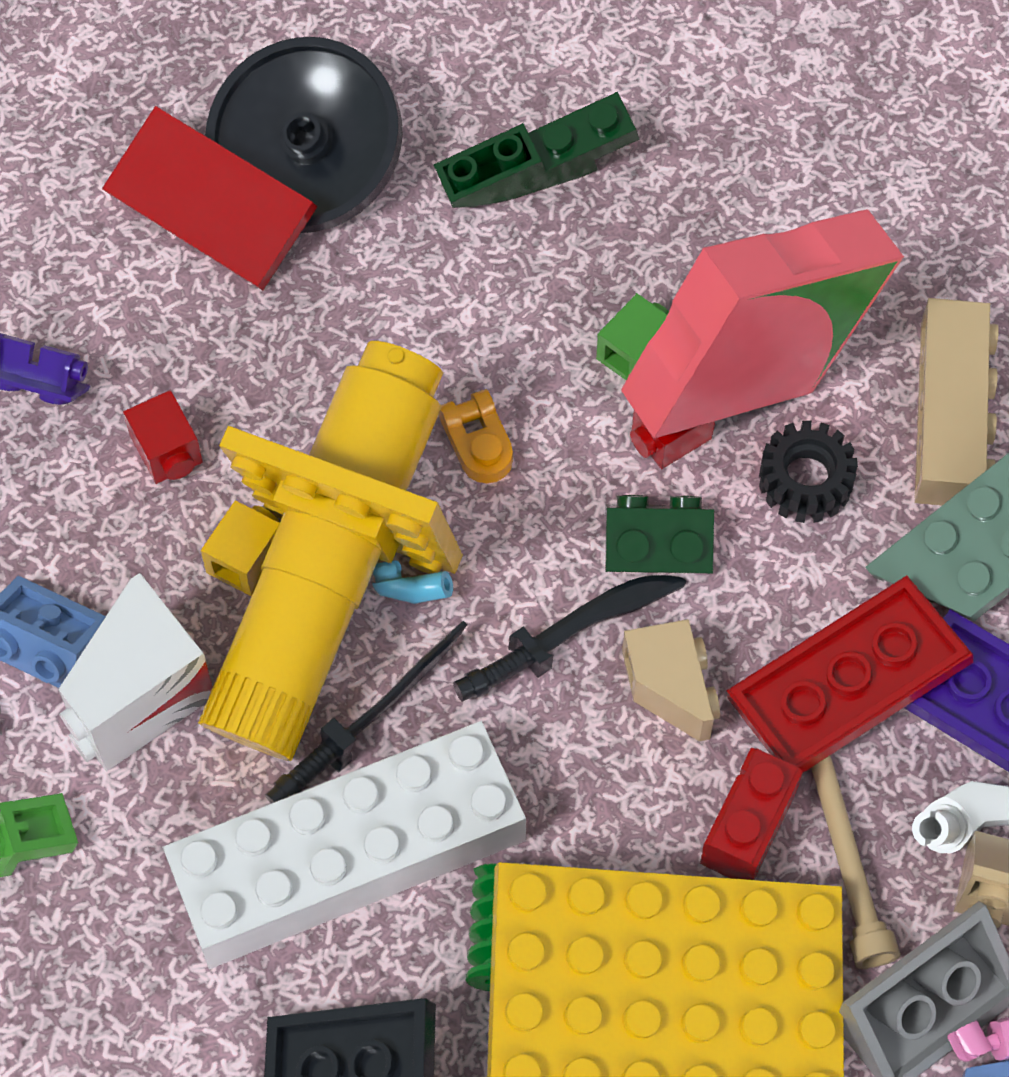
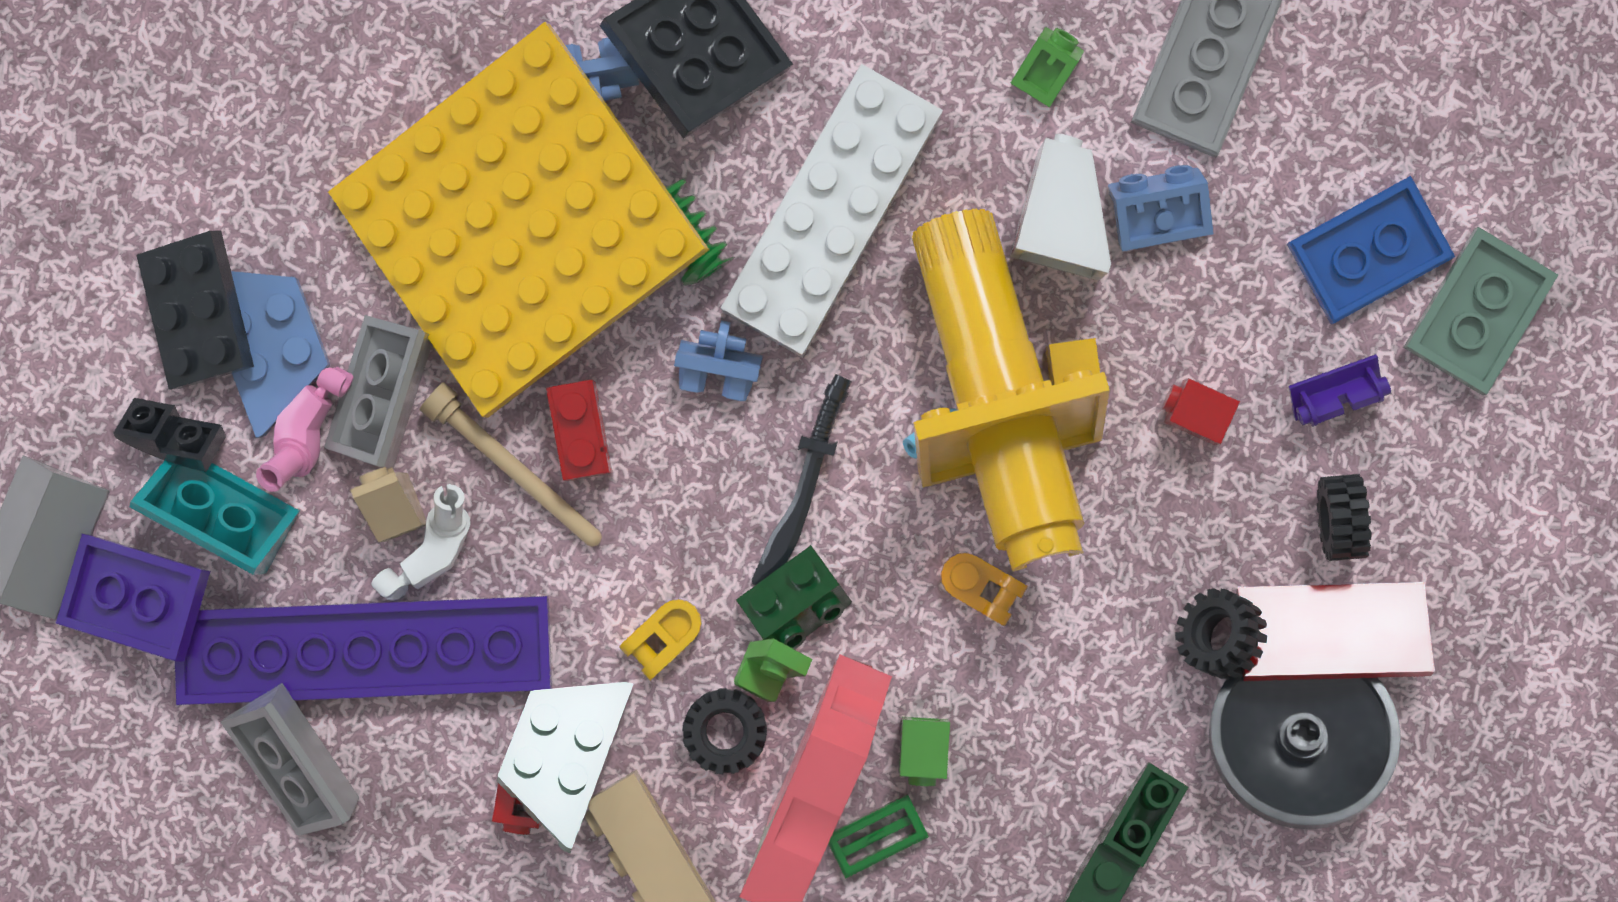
camera: 145 degrees right, 25 degrees up
(120, 267) = (1343, 517): none -> black tyre
(333, 249) = (1242, 640): none -> black tyre
(338, 741) = (895, 277): black sword -> none
(563, 789) = (718, 355): none -> medium blue hips
(667, 676) = (708, 493): tan slope -> none
(731, 493) = (768, 666): none -> bright green bracket
(786, 590) = (675, 624): none -> yellow plate
(850, 676) = (584, 584): red tile -> none

